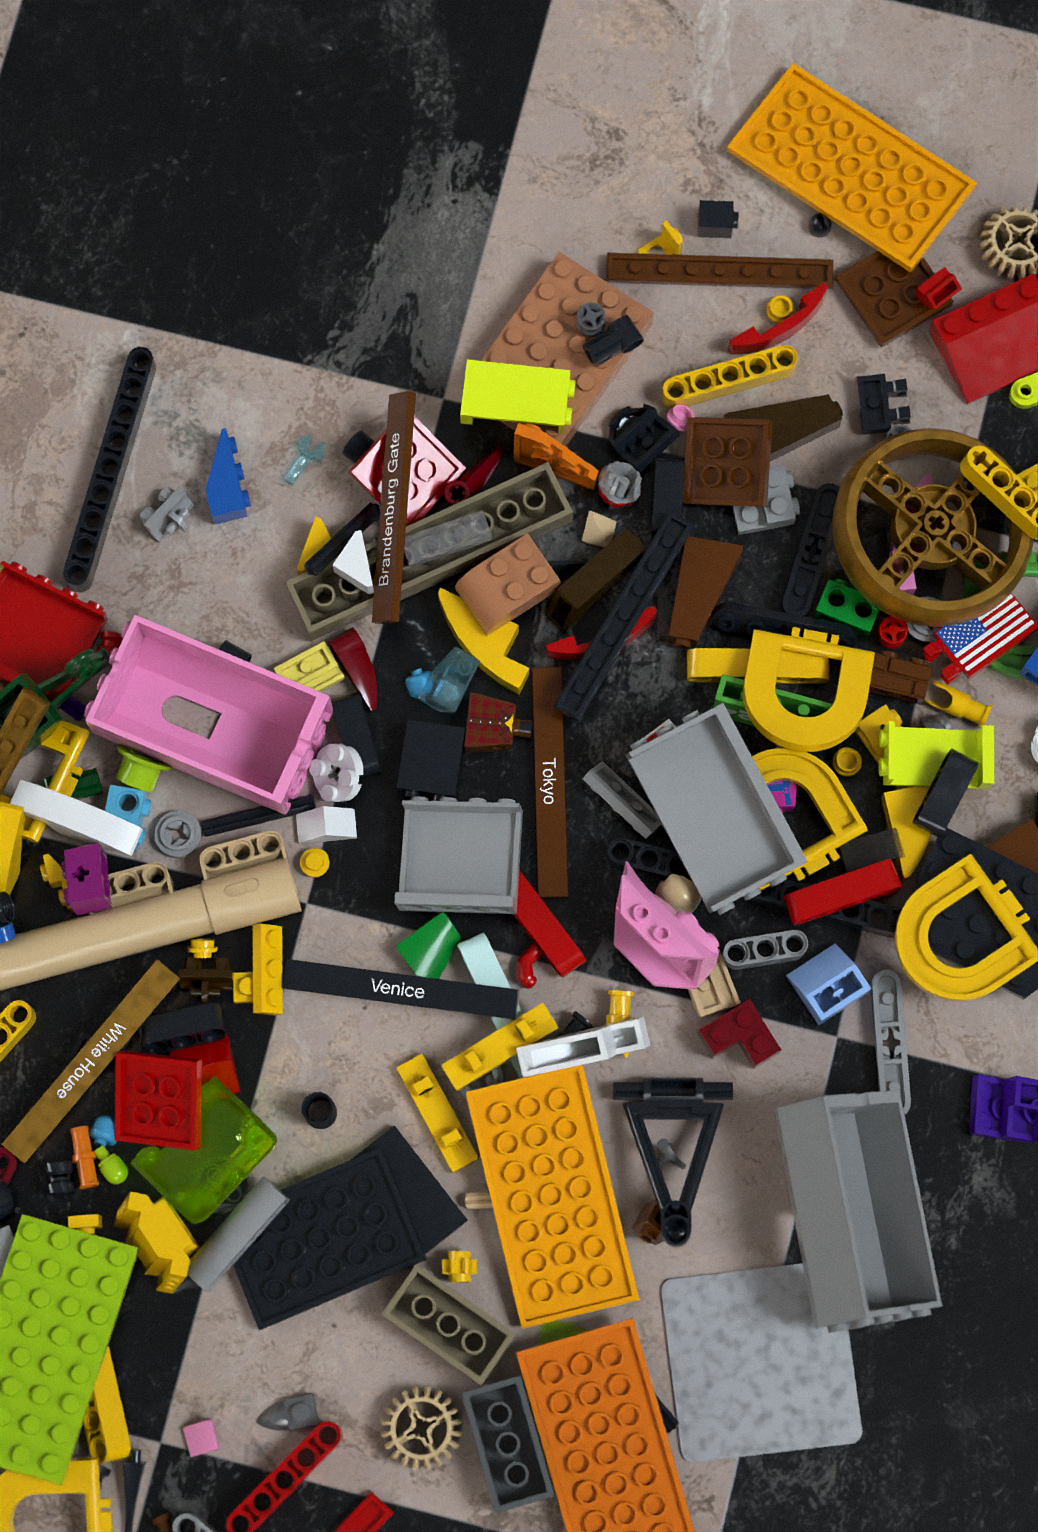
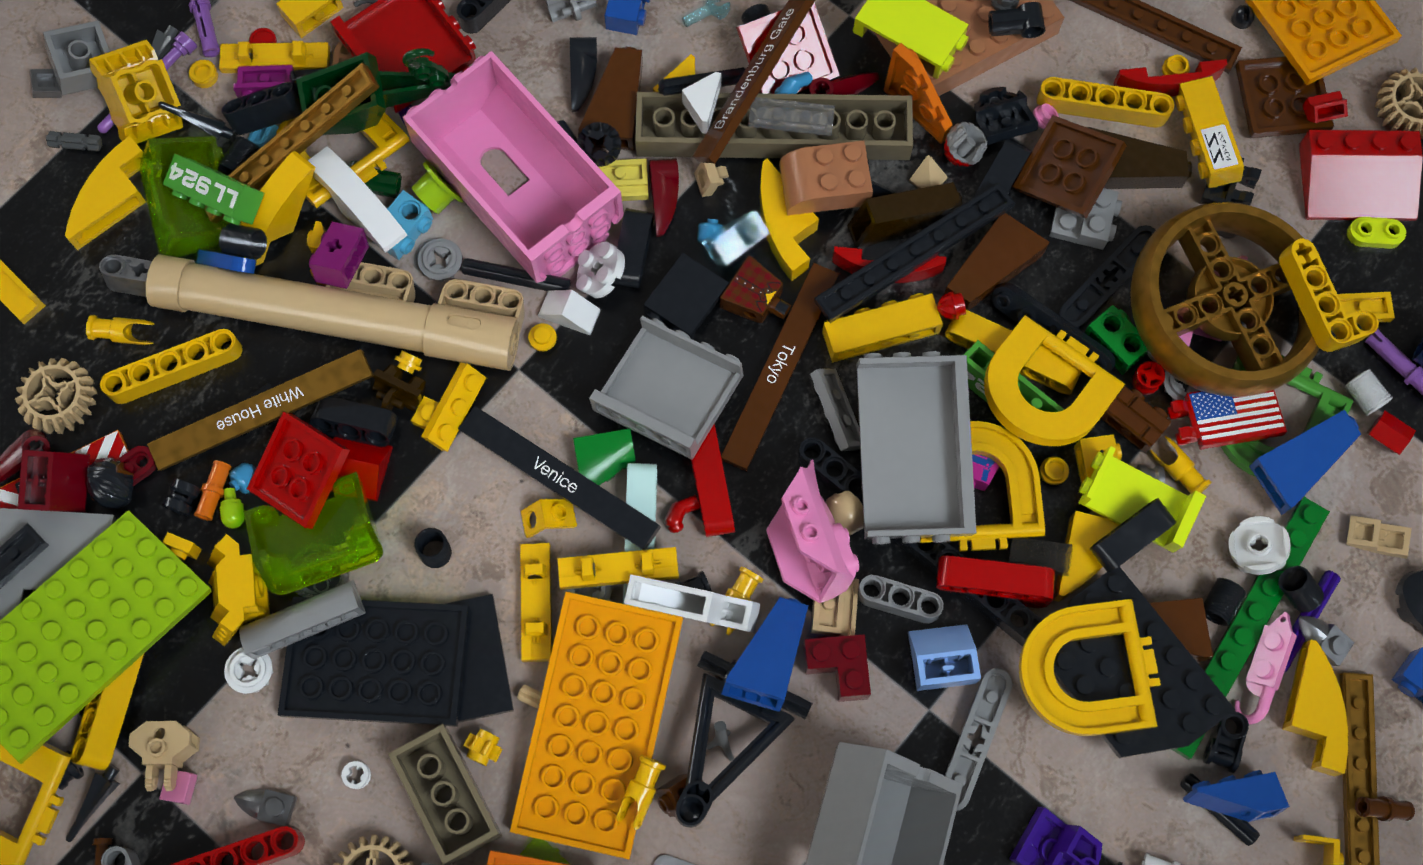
camera: 25 degrees right, 5 degrees down
(175, 1414) = (163, 747): none -> tan hinge
(215, 578) = (582, 68): none -> black piece
(217, 1315) = (234, 672): none -> white gear
(266, 601) = (617, 97): none -> reddish brown slope
(267, 639) = (612, 143): none -> black gear
(366, 1346) = (365, 778): none -> white bush
(394, 633) = (709, 177): none -> tan tile
(410, 1027) = (549, 515): none -> yellow bracket
(428, 502) = (793, 84): none -> dark azure arm
(621, 1233) = (641, 790): none -> yellow piece
(627, 700) = (882, 327): none -> yellow brick
(677, 1064) = (767, 662): none -> blue slope
(682, 652) = (951, 306): none -> red plate
(841, 363) = (1209, 132): none -> yellow brick

